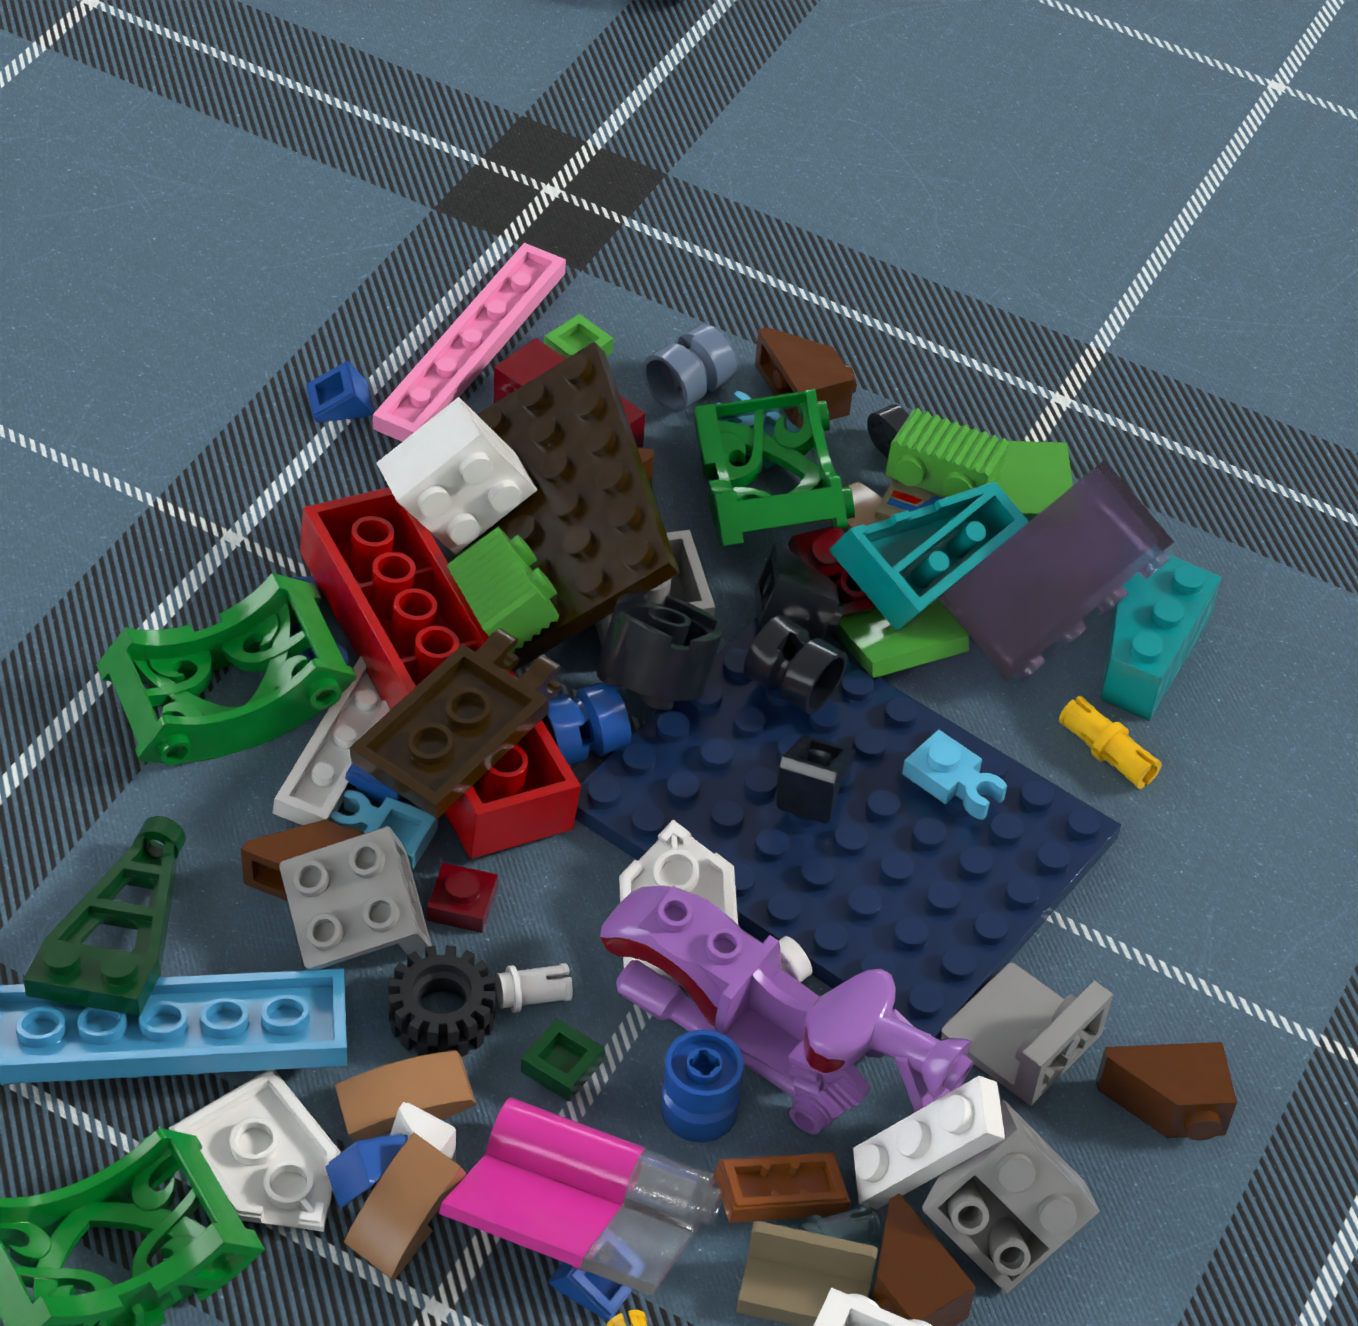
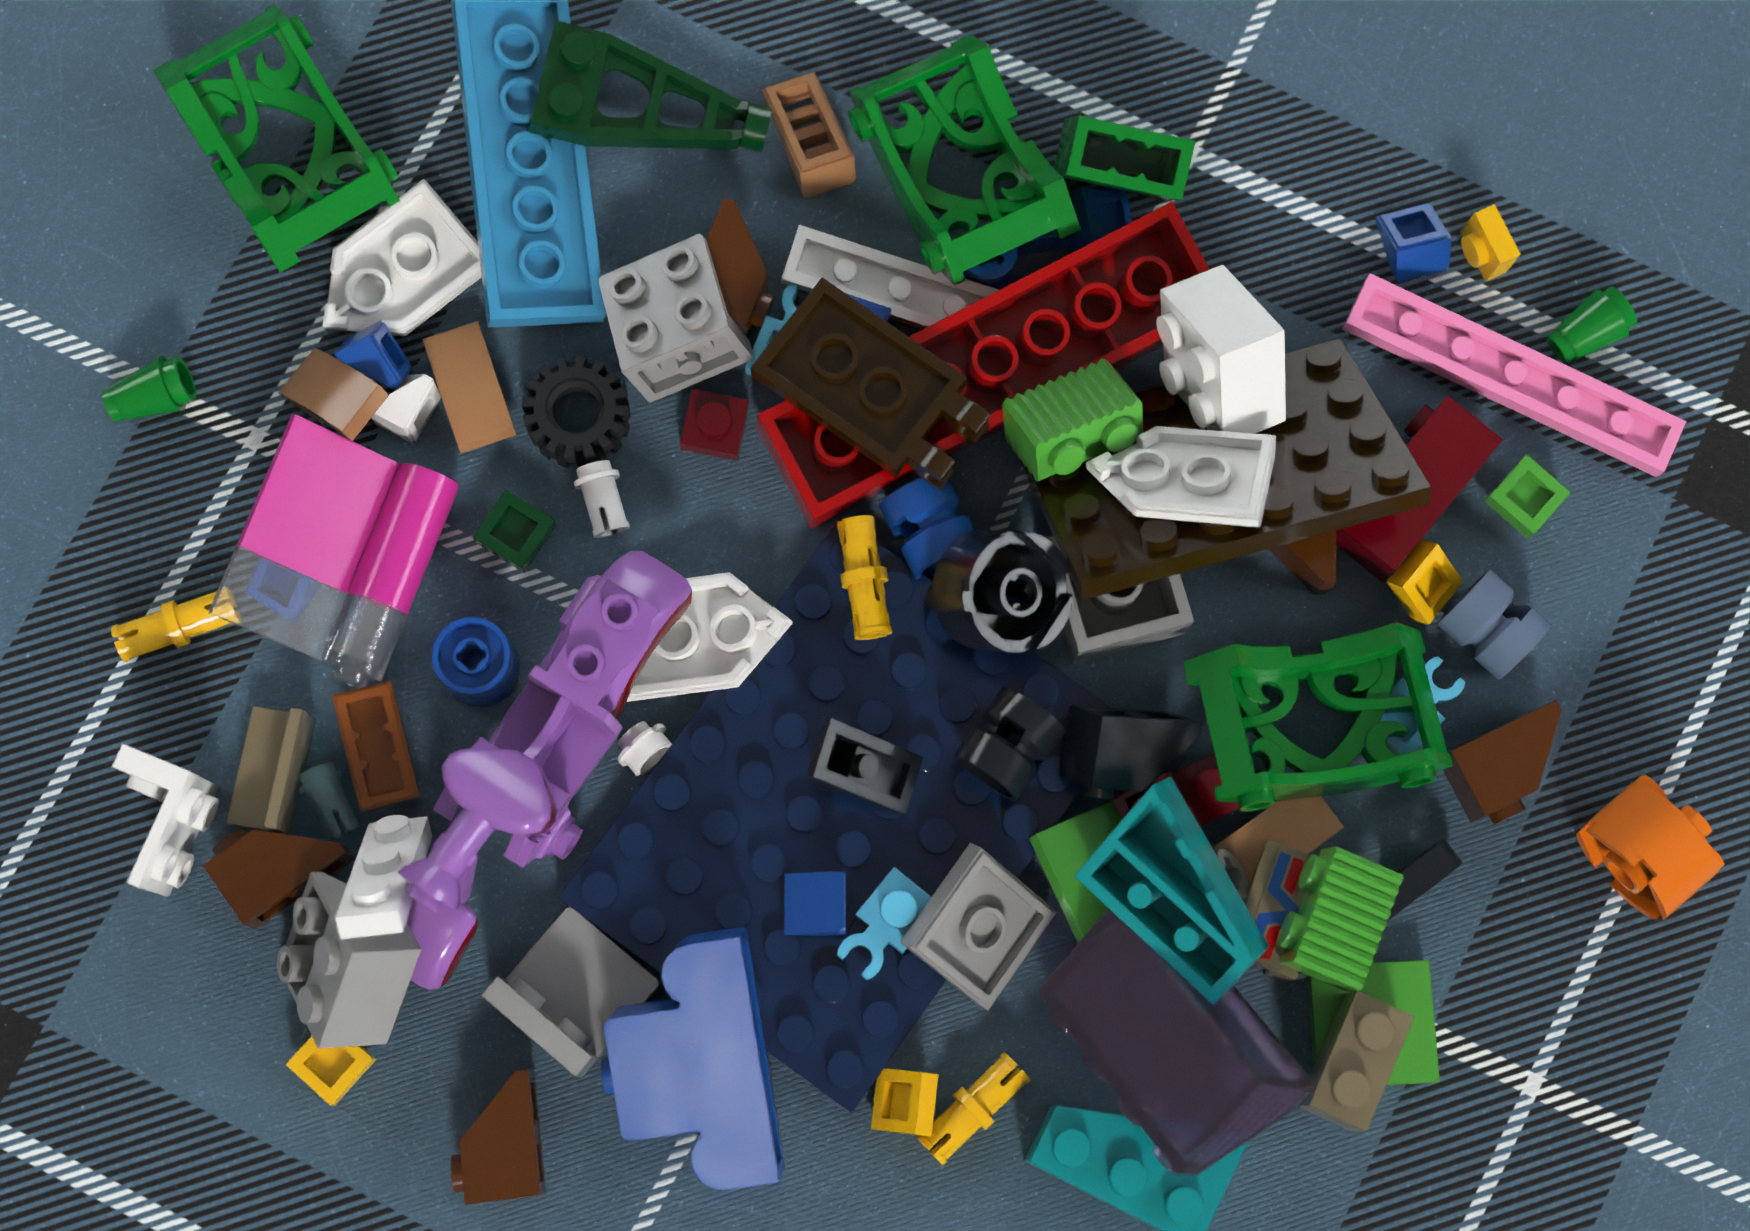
camera: 85 degrees right, 30 degrees up
(197, 782) = (820, 167): none -> medium nougat slope
(254, 537) = (1124, 158): none -> green brick
(354, 340) = (1488, 243): none -> yellow plate
(432, 289) = (1593, 325): none -> green cone
(570, 493) = (1191, 475): none -> white tile
(633, 767) = (864, 577): none -> yellow pin
(657, 411) = (1424, 581): none -> yellow plate
(879, 290) = (1651, 848): none -> orange brick
(939, 818) = (815, 904): none -> blue slope
(954, 713) = (978, 926): none -> light grey tile
(1048, 463) = (1356, 1060): none -> dark tan brick
(1085, 912) = (700, 1063): none -> brick
(1107, 1238) = (330, 1070): none -> yellow plate
(1110, 782) = (904, 1102): none -> yellow plate

